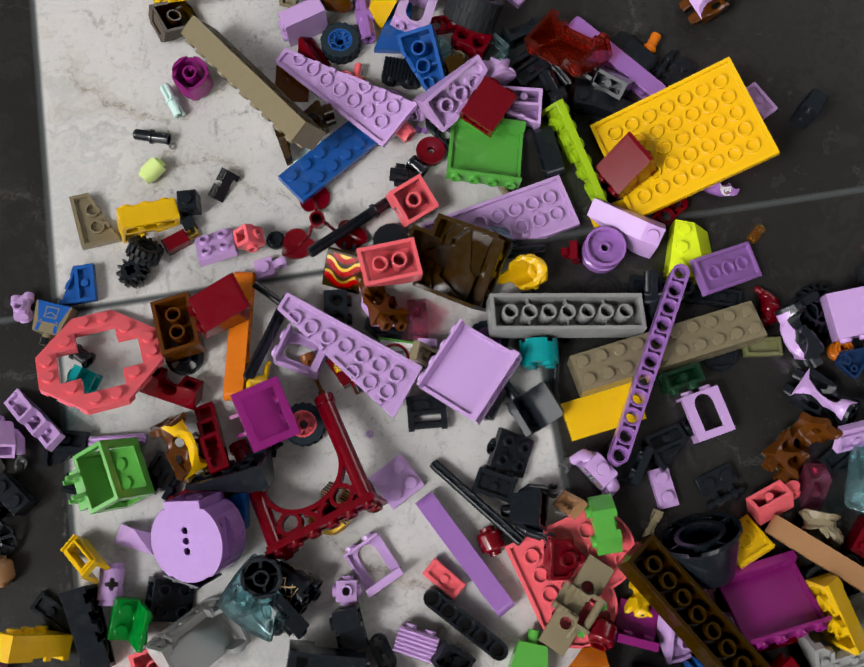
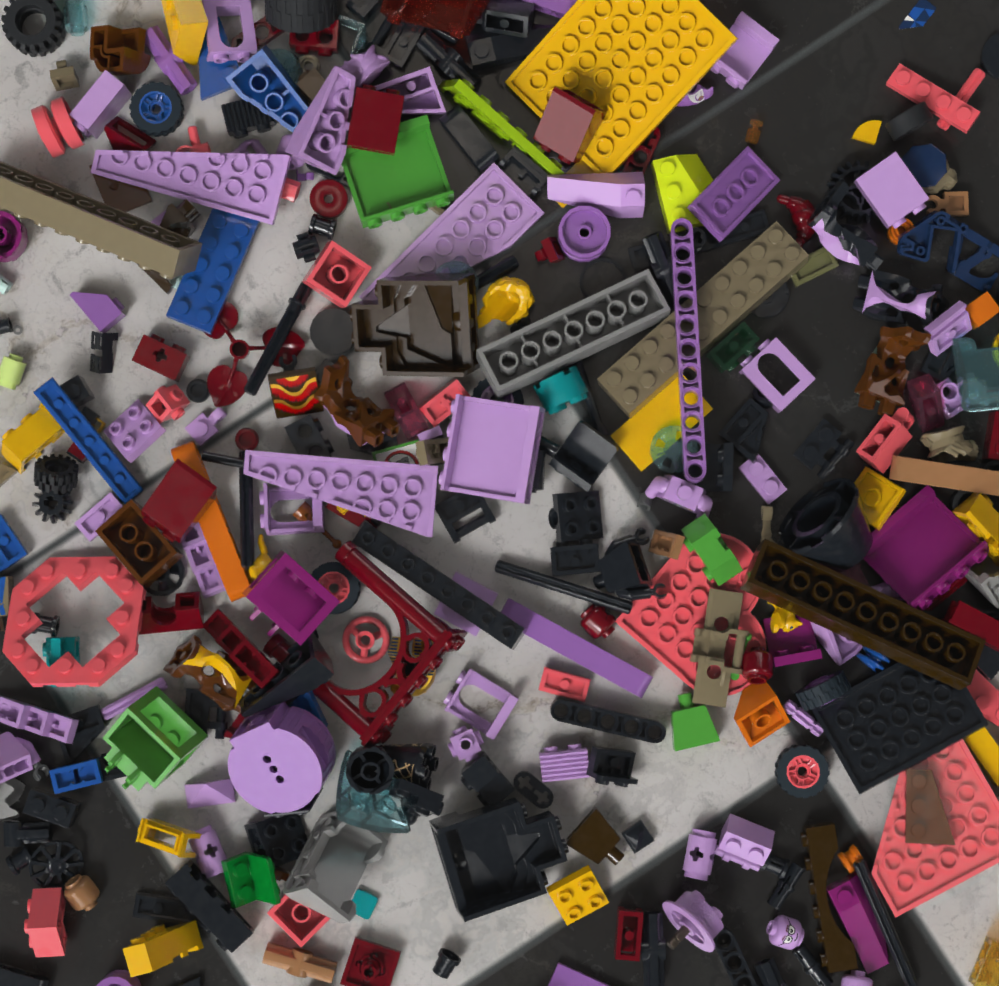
camera: 25 degrees left, 10 degrees up
(41, 478) = (76, 775): none -> blue brick
(156, 627) = (281, 873): none -> reddish brown tile
(159, 293) = (98, 515): none -> lavender plate
(179, 237) = (88, 440): none -> blue tile
(216, 361) = (202, 563): none -> lavender slope
(235, 155) = (100, 309): none -> medium lavender slope
(253, 198) = (147, 354): none -> dark red brick
(265, 23) = (56, 127): none -> coral wheel
(294, 288) = (247, 439): none -> dark red plate
(305, 468) = (351, 628): none -> coral piece
(383, 459) = (439, 586): none -> black brick
(390, 263) = (348, 366): coral slope -> none
(442, 325) = (439, 404): none -> coral hinge
(561, 558) = (681, 606): dark red plate -> none
(578, 190) = (523, 172): none -> black hinge
(603, 434) = (672, 449): none -> clear light blue piece
(770, 176) = (746, 53): none -> lavender panel
(835, 493) = (950, 403): none -> lavender plate
(840, 269) = (867, 132): none -> yellow tile

